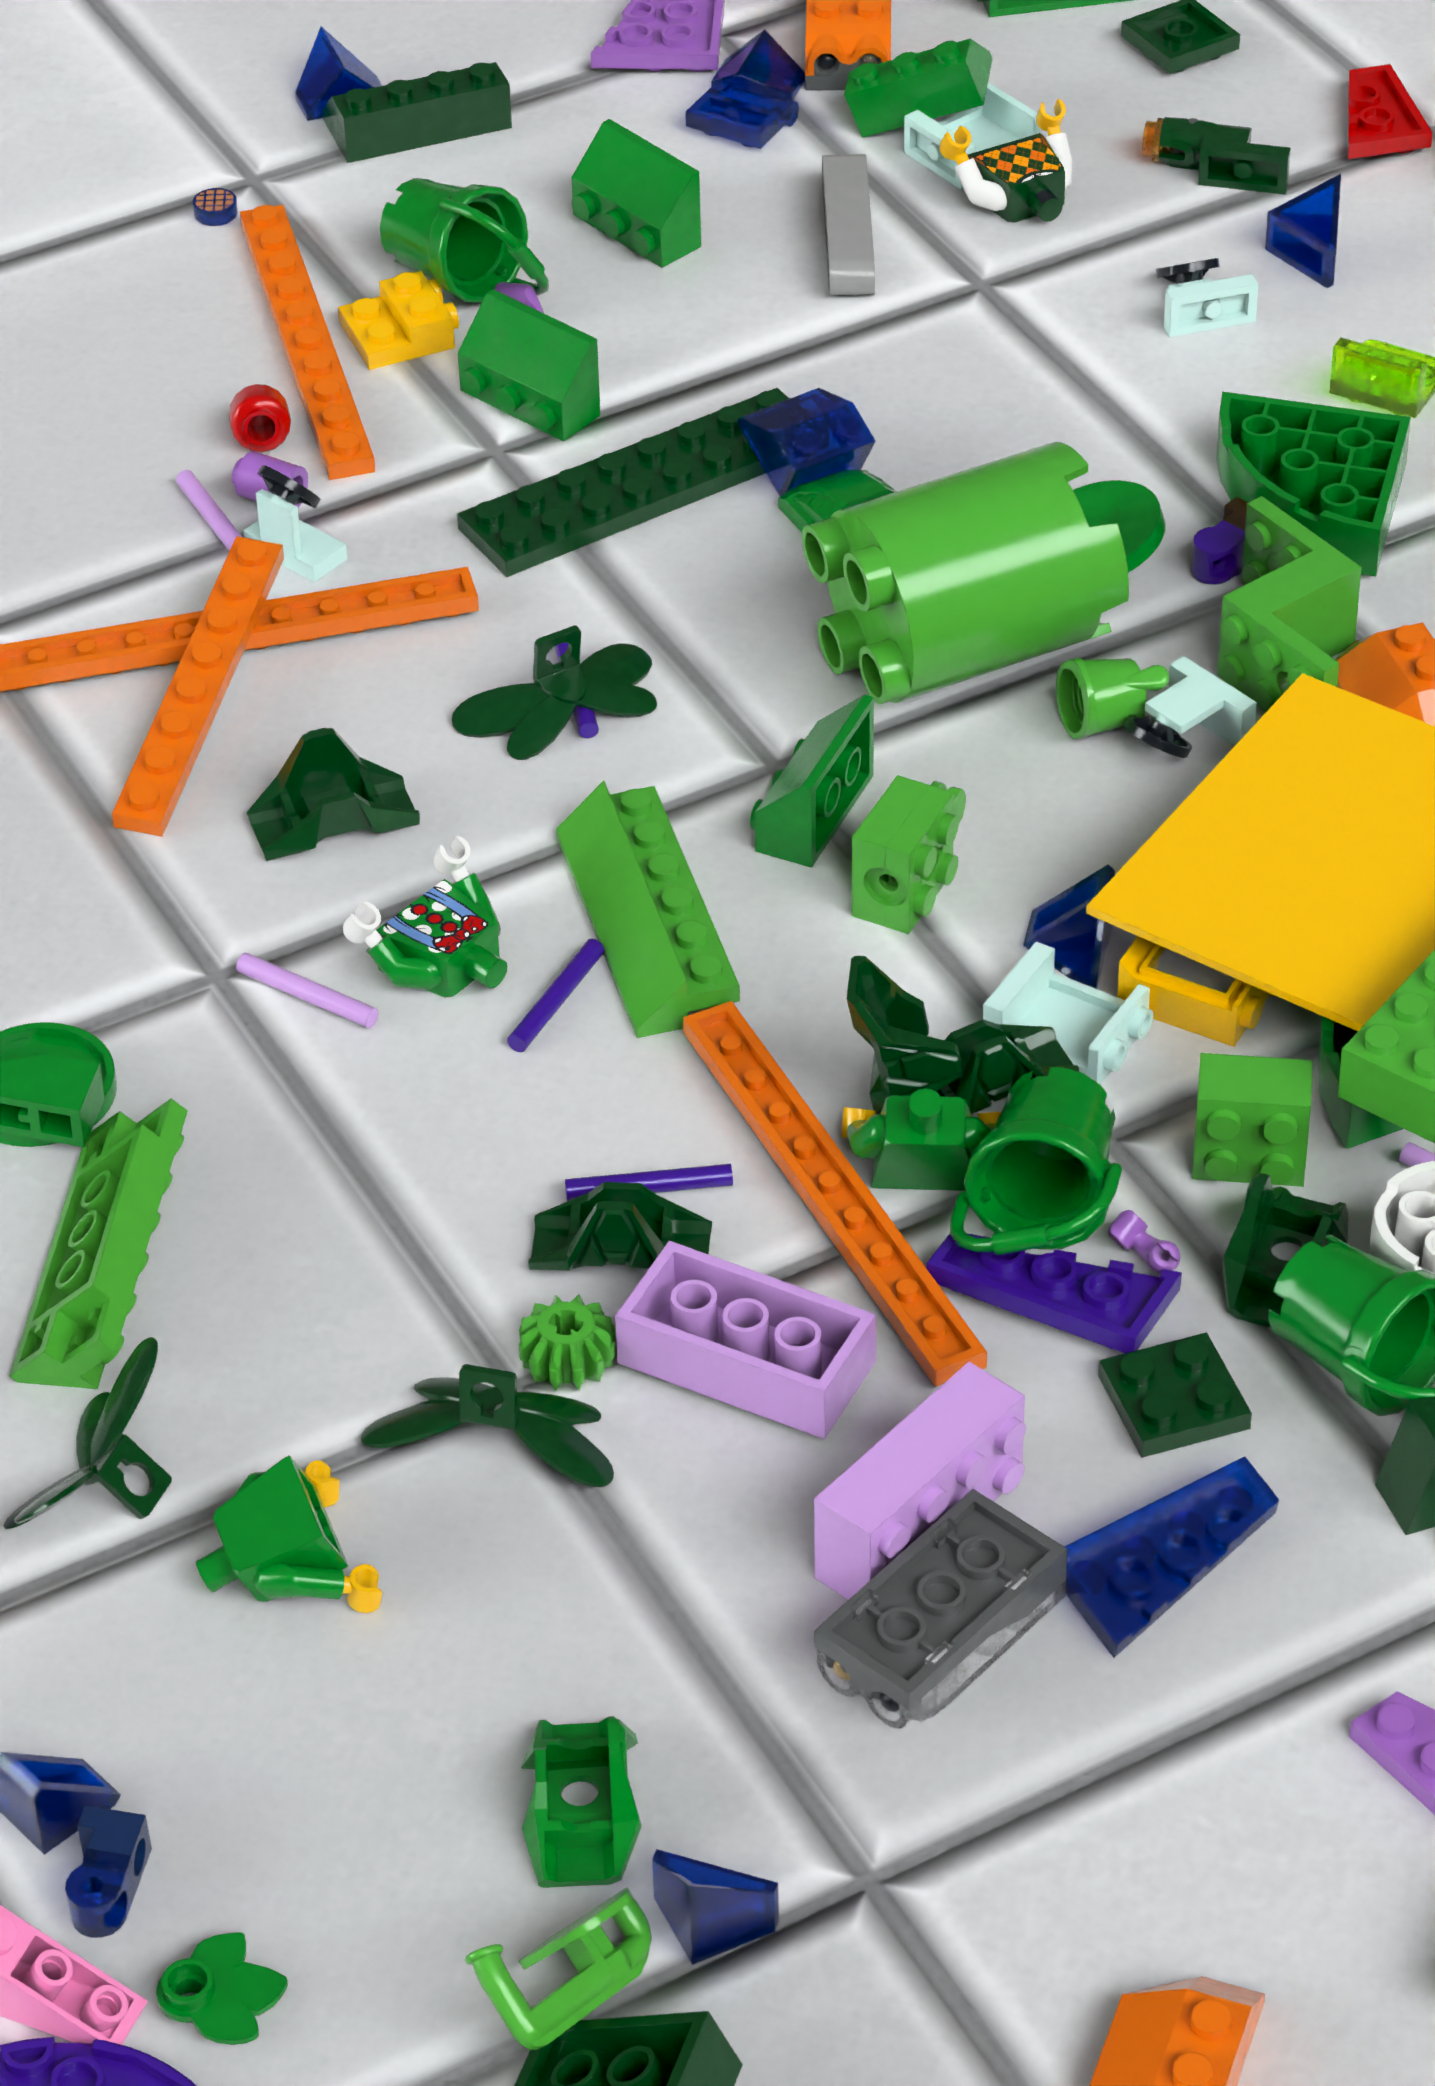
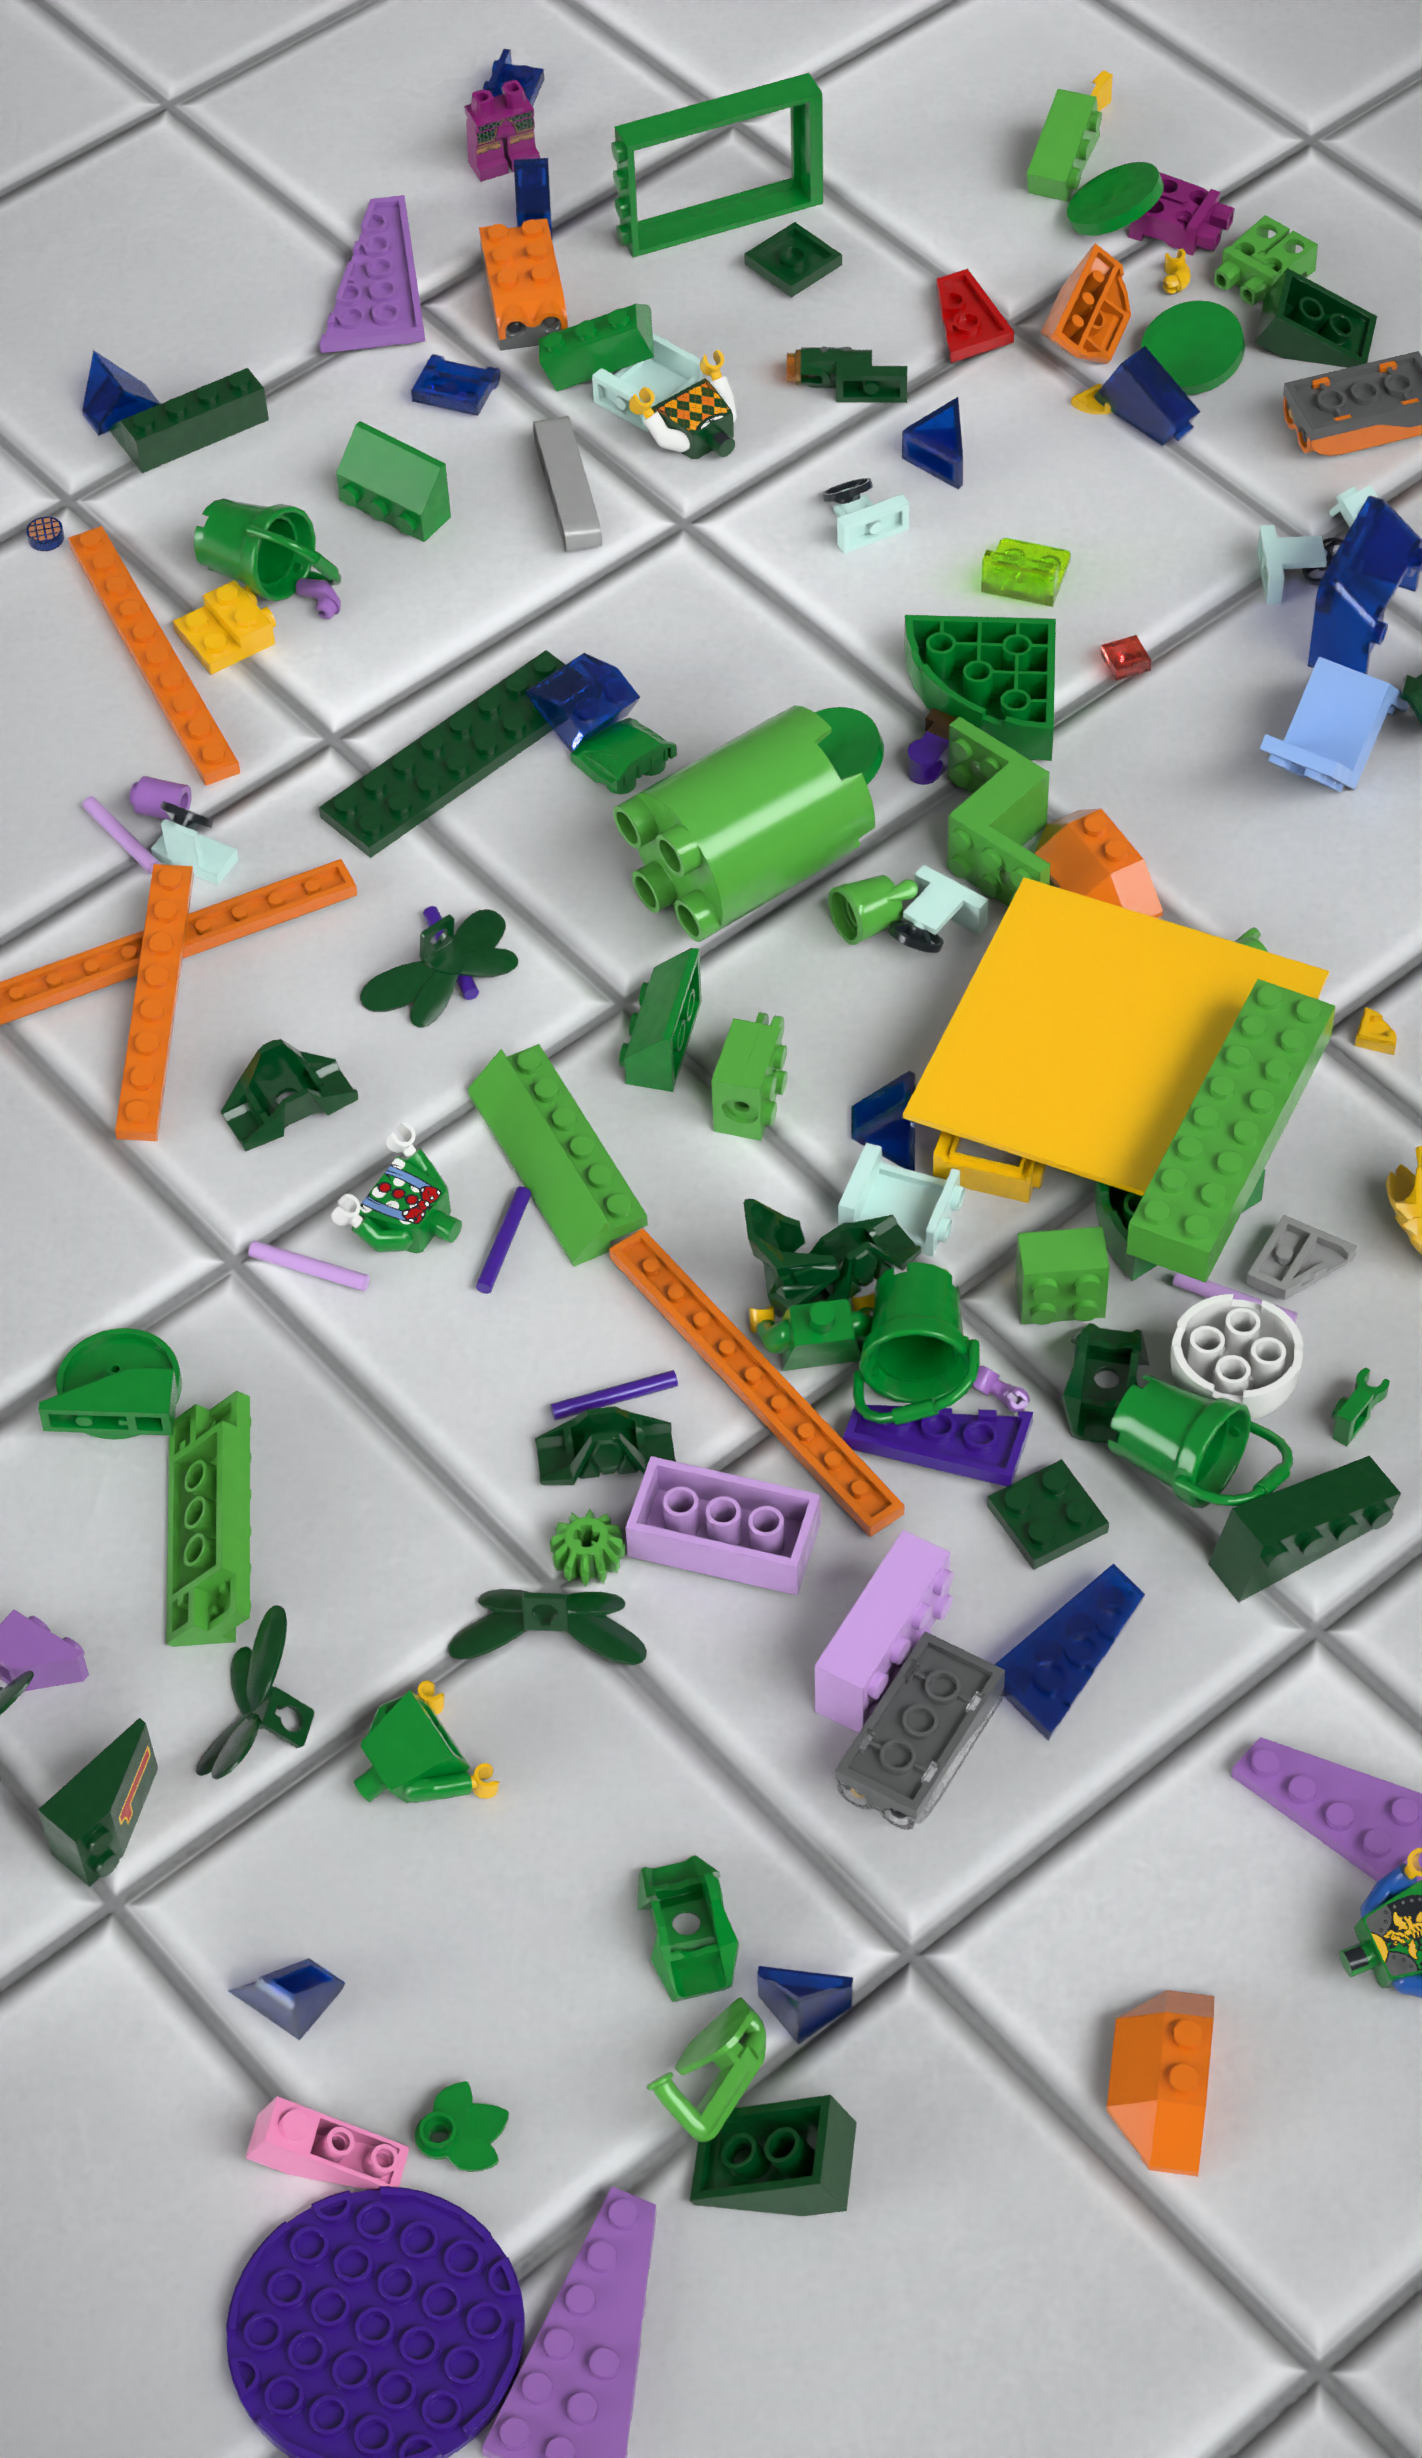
camera: 10 degrees left, 10 degrees up
(114, 1860) = (355, 2062): leg -> none
(259, 418) = (137, 739): red head -> none
(531, 366) = (347, 663): green slope -> none
(762, 69) = (461, 339): clear blue slope -> none

